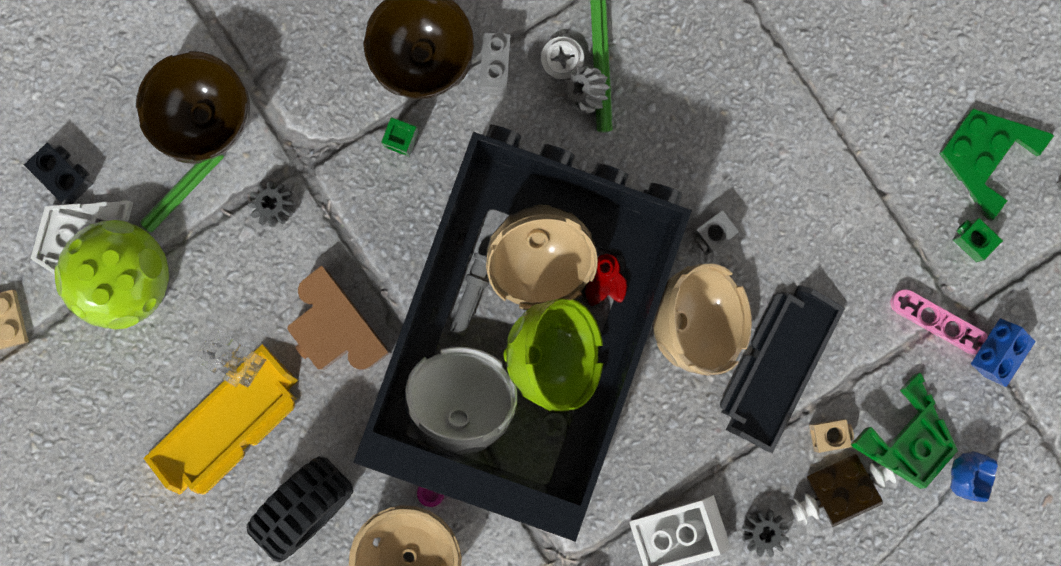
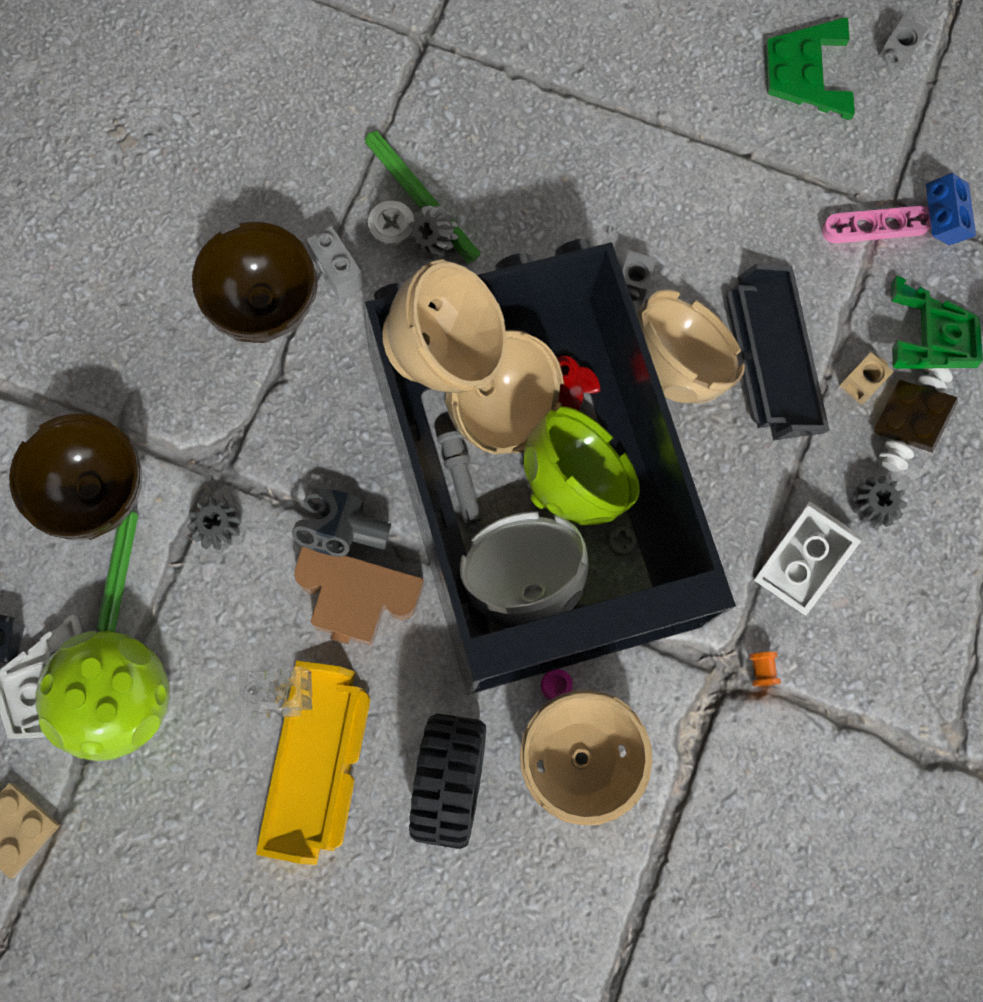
camera: 45 degrees left, 10 degrees down
(359, 271) = (339, 524): none -> dark grey connector
(400, 137) = (294, 381): green brick -> none
(523, 205) = (457, 343): none -> tan piece
(988, 242) = (864, 132): green brick -> none

